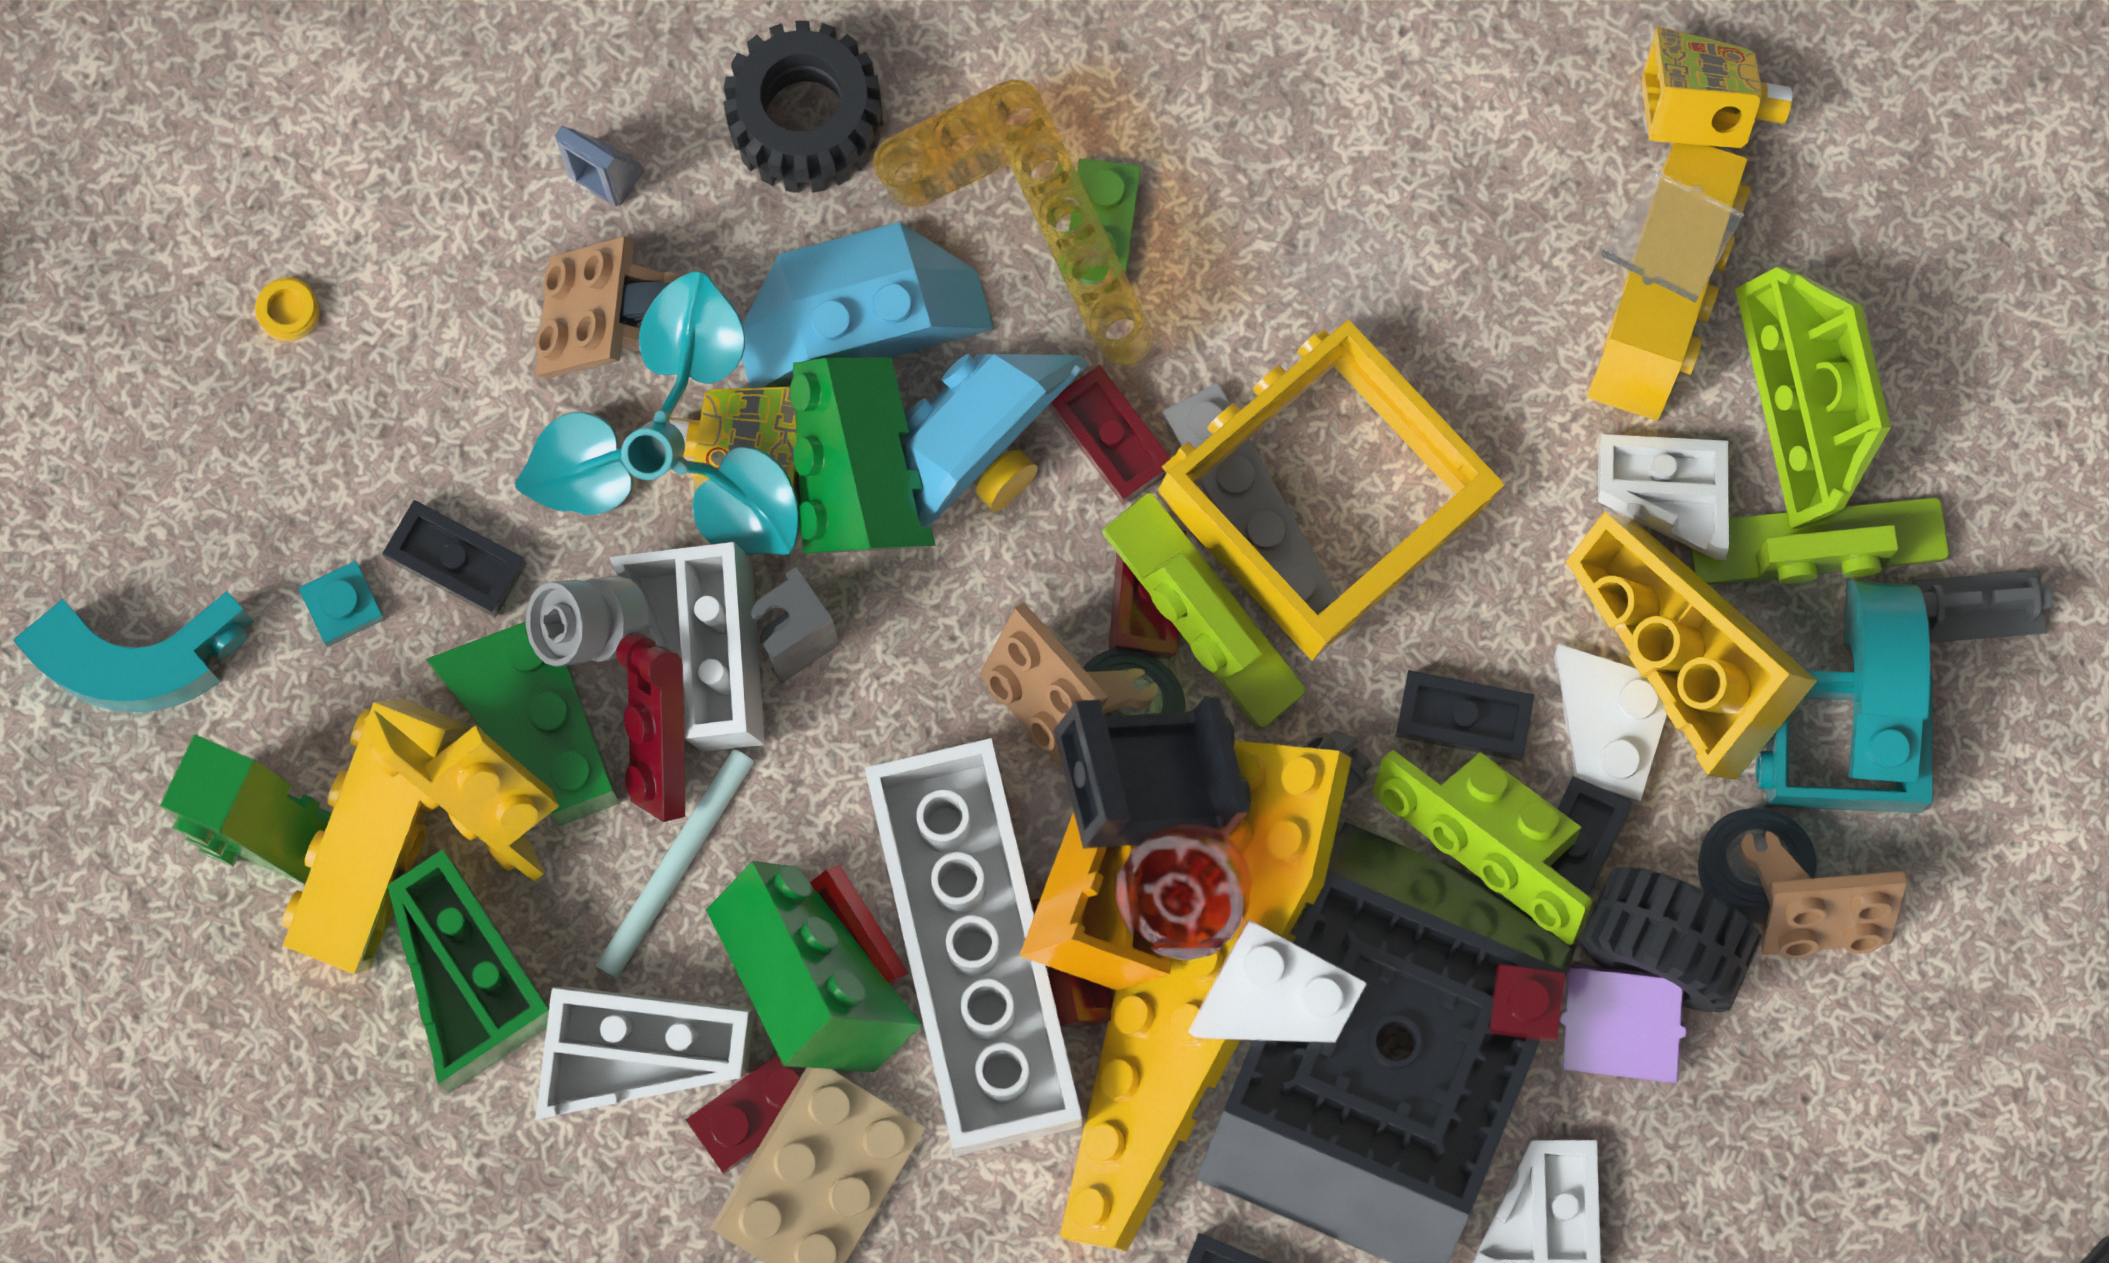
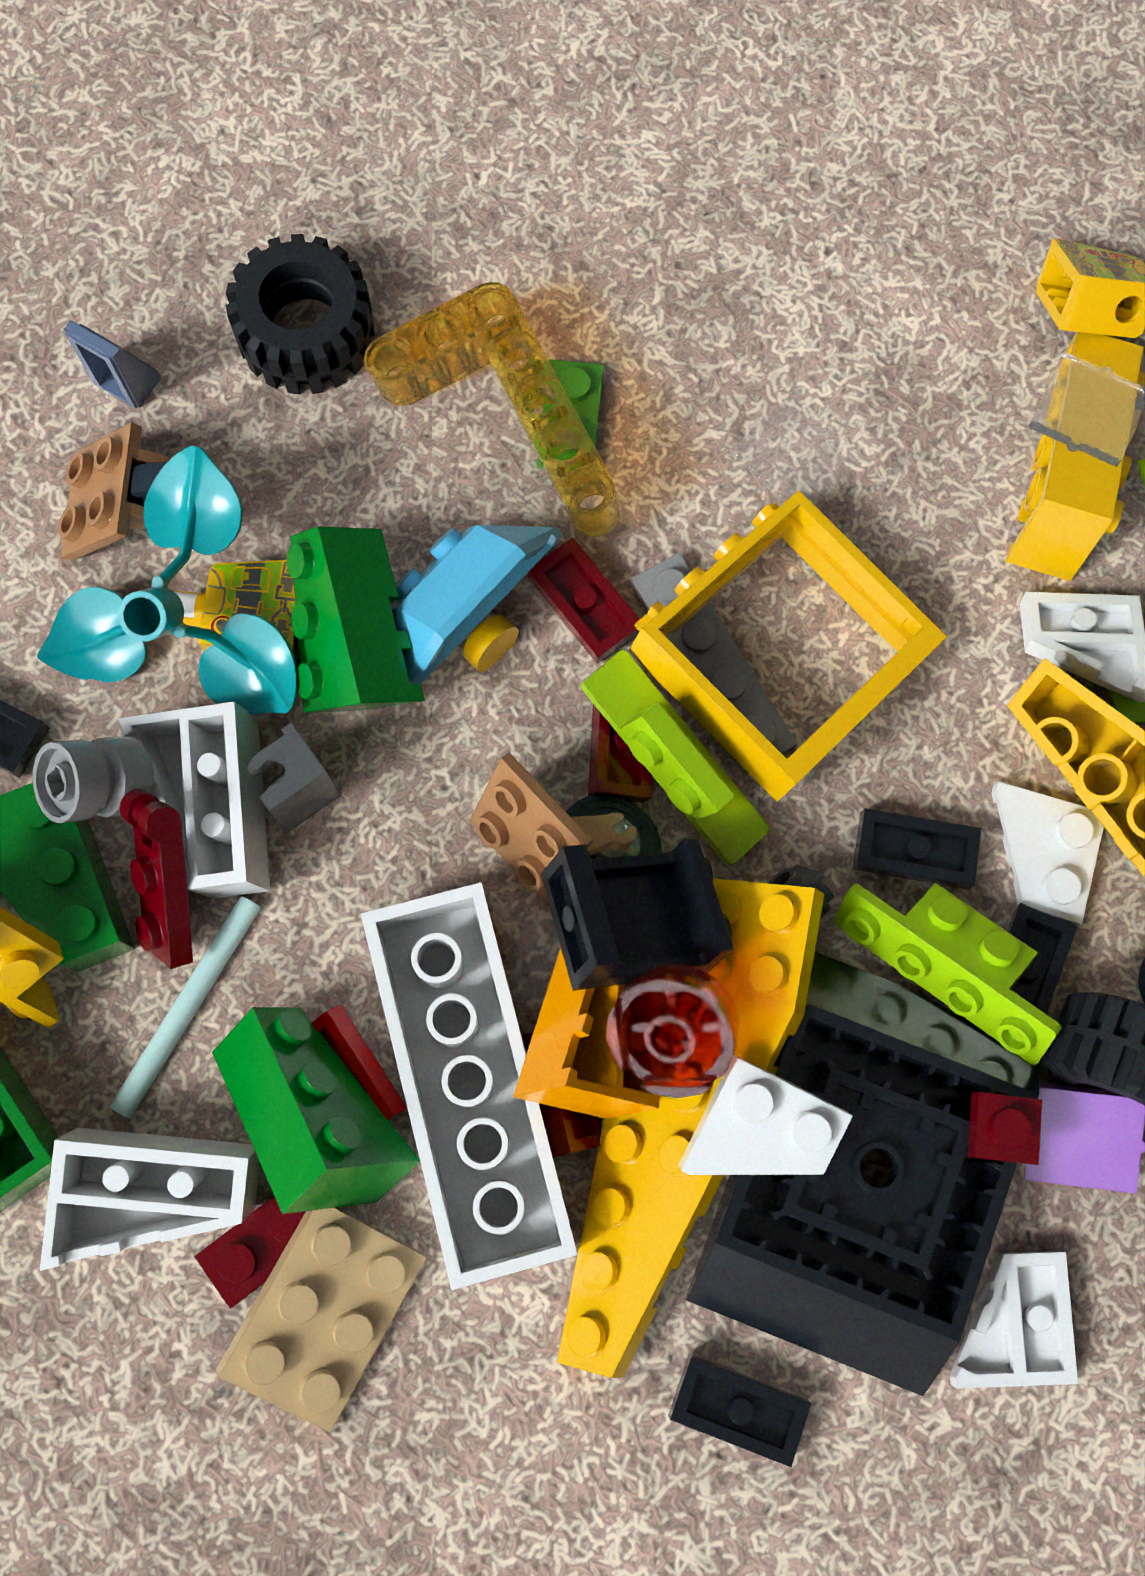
camera: 10 degrees left, 0 degrees up
(860, 298) = (355, 478): medium azure wedge -> none

